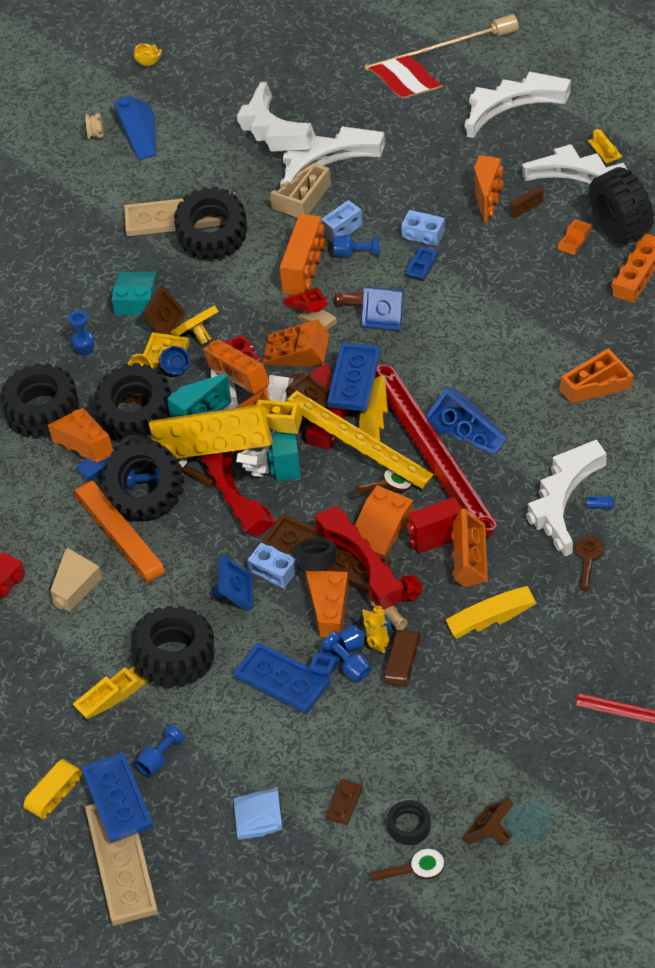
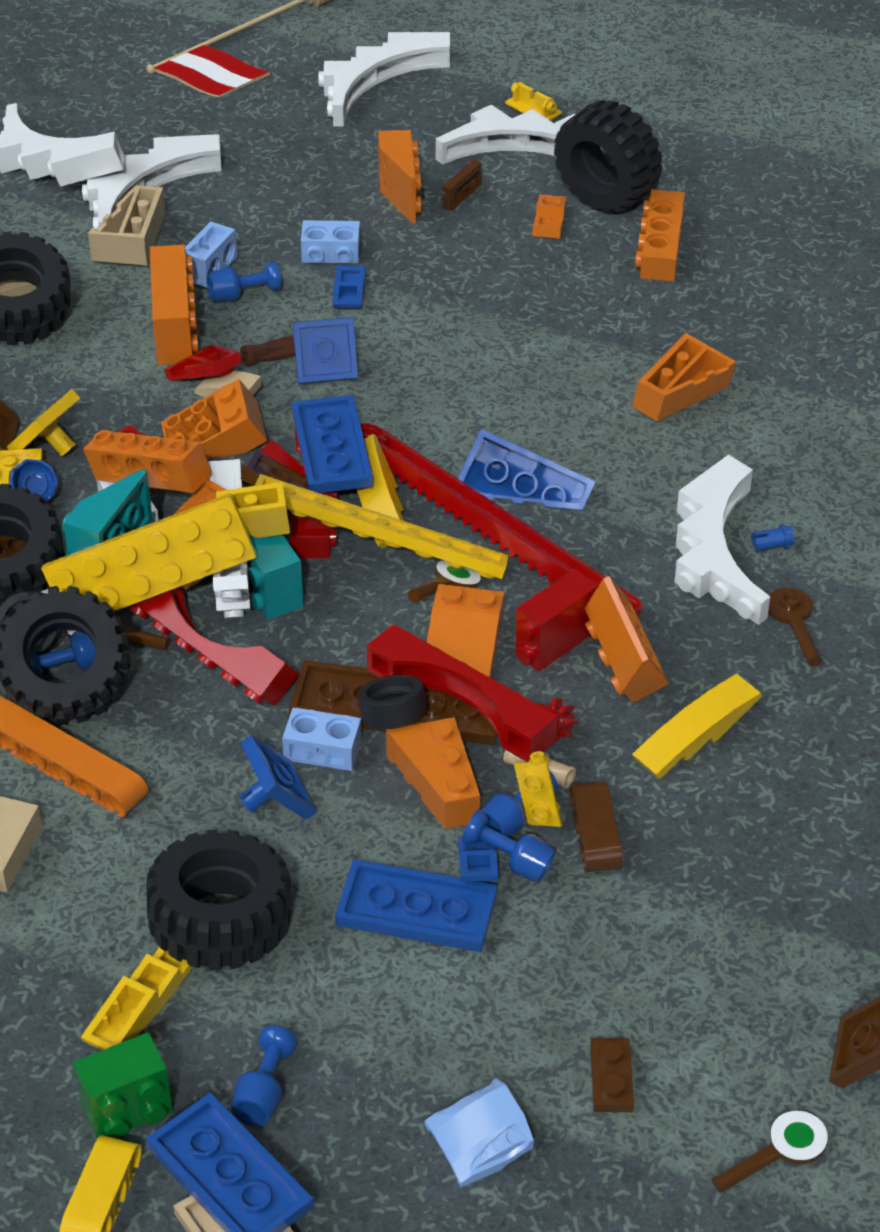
camera: 25 degrees left, 5 degrees down
(81, 737) = (123, 1087): none -> green brick
(406, 837) = (731, 1103): black tyre -> none

